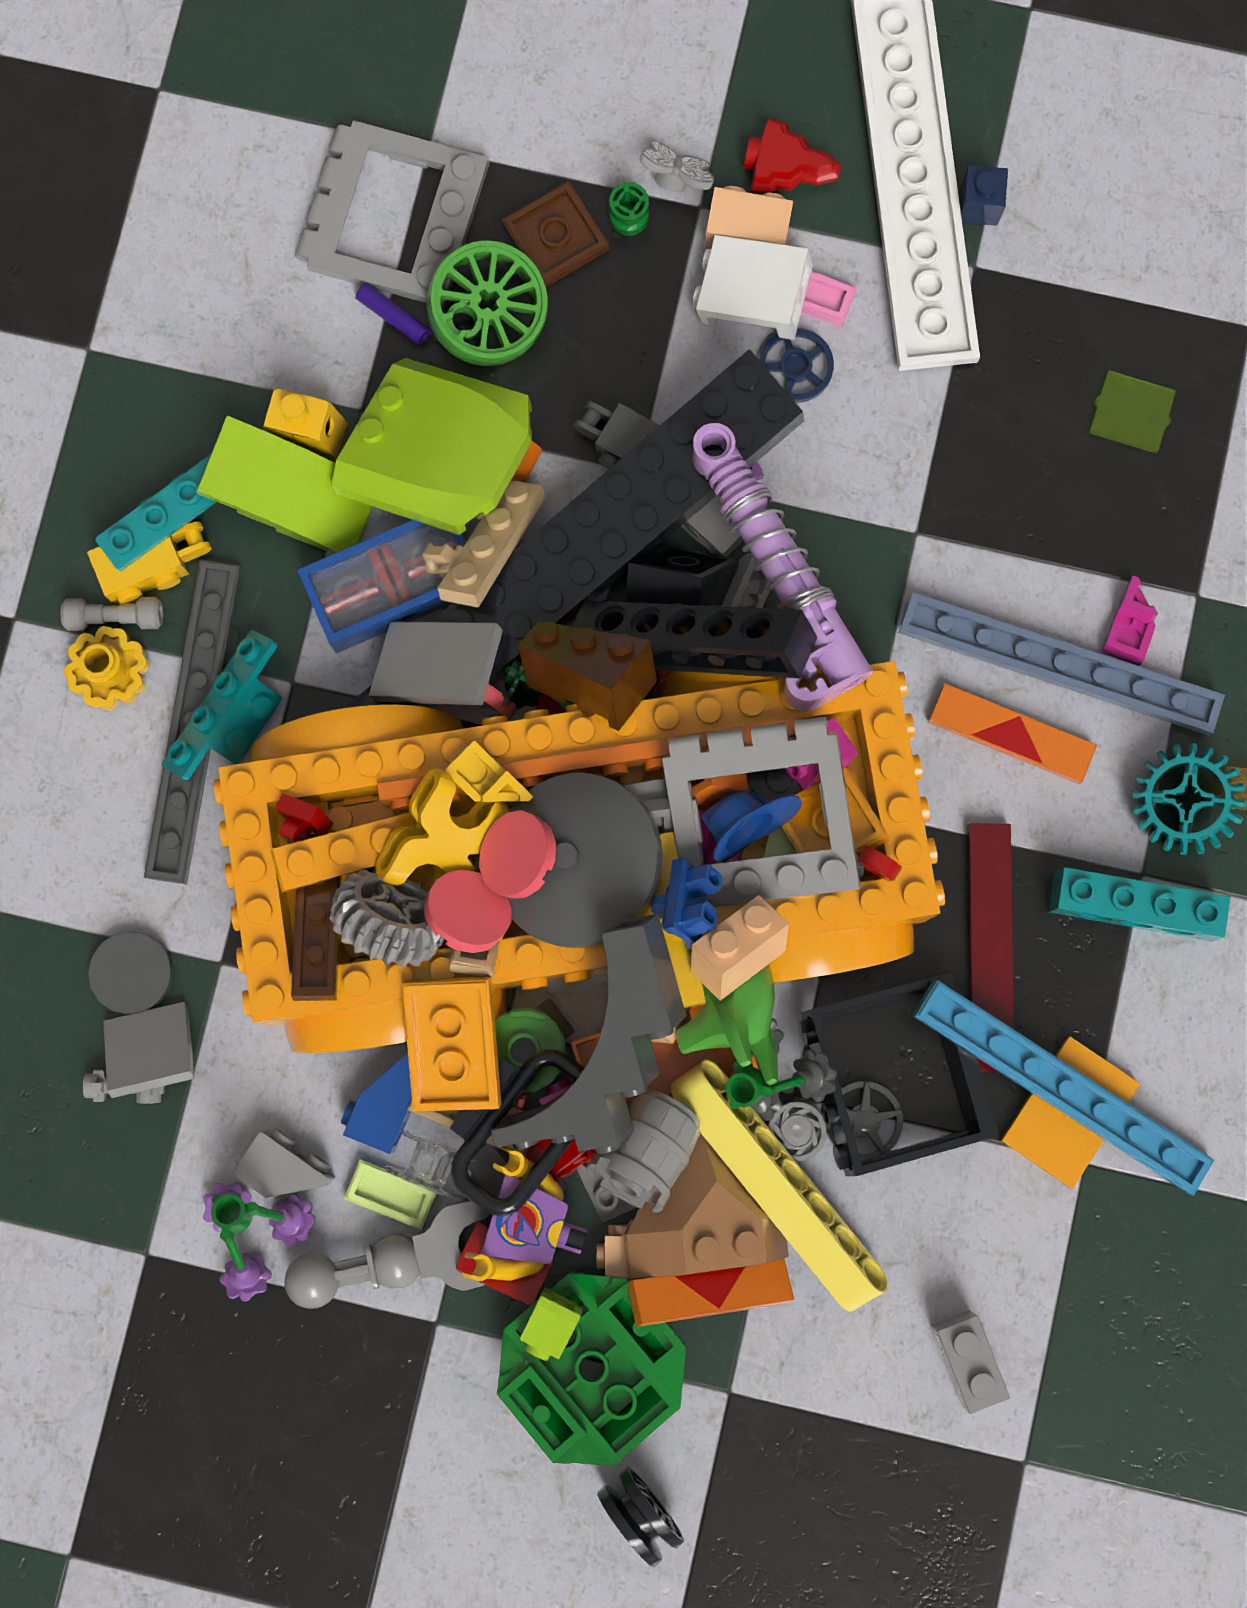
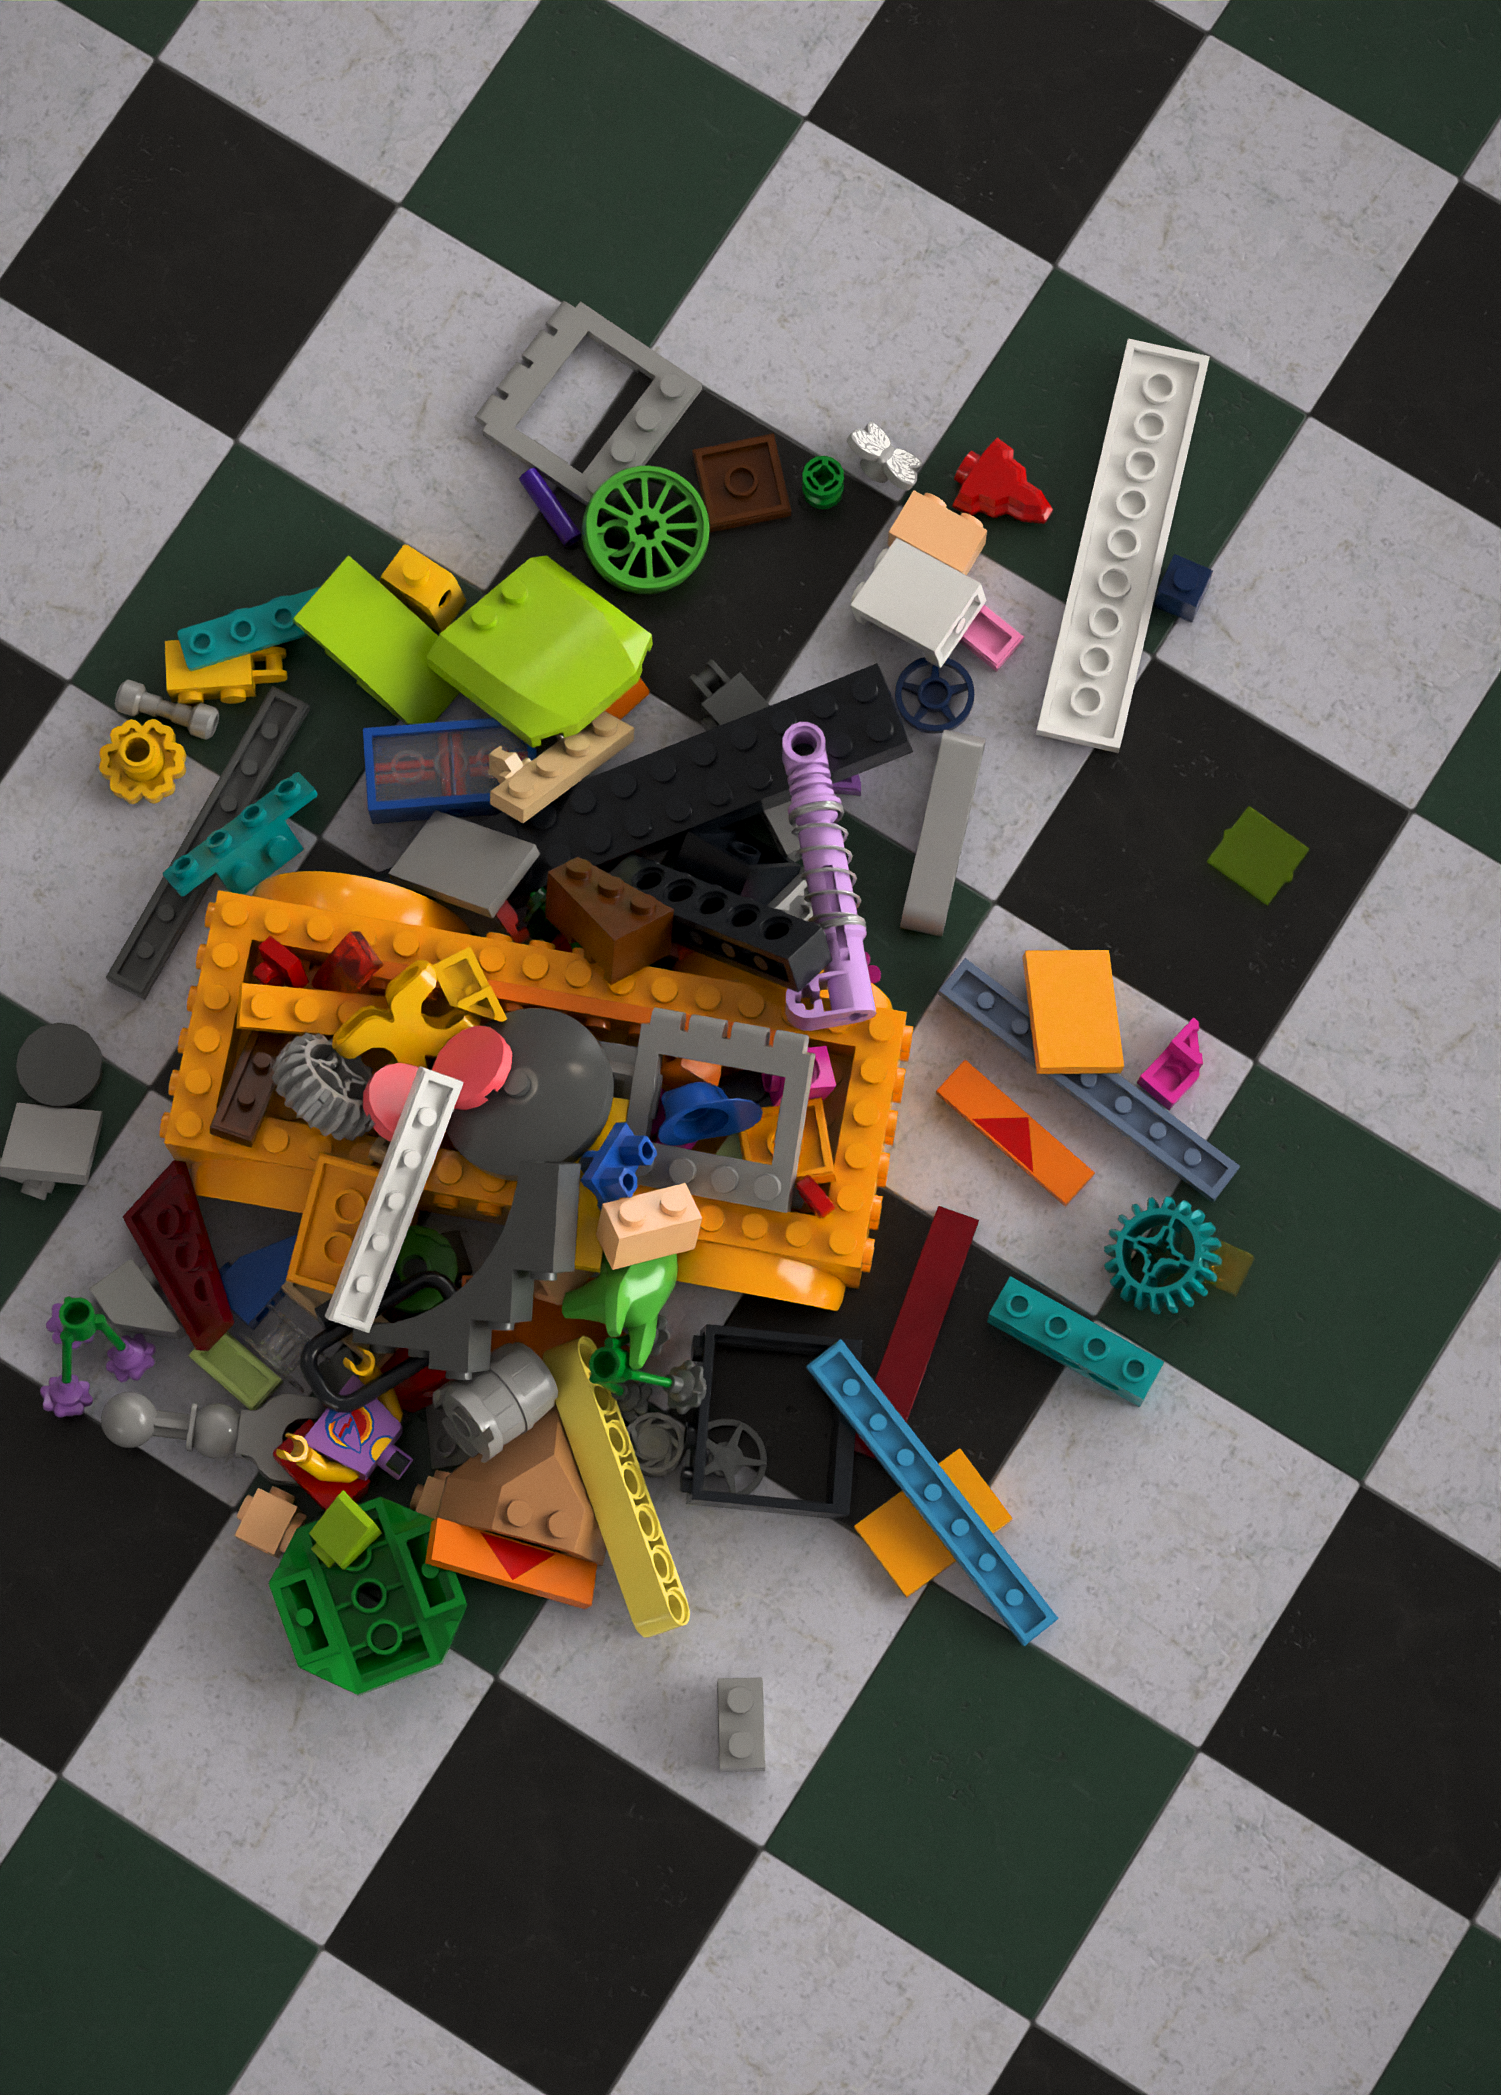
camera: 20 degrees right, 5 degrees down
(302, 1110) = (179, 1252): none -> dark red wing
(365, 796) = (348, 965): none -> clear red slope
(474, 1327) = (269, 1521): none -> light nougat brick
(490, 1004) = (394, 1199): none -> white tile
(640, 1517) = (364, 1753): black wheel -> none
(851, 486) = (942, 833): none -> light grey beam
(1027, 607) = (1073, 1011): none -> light orange tile

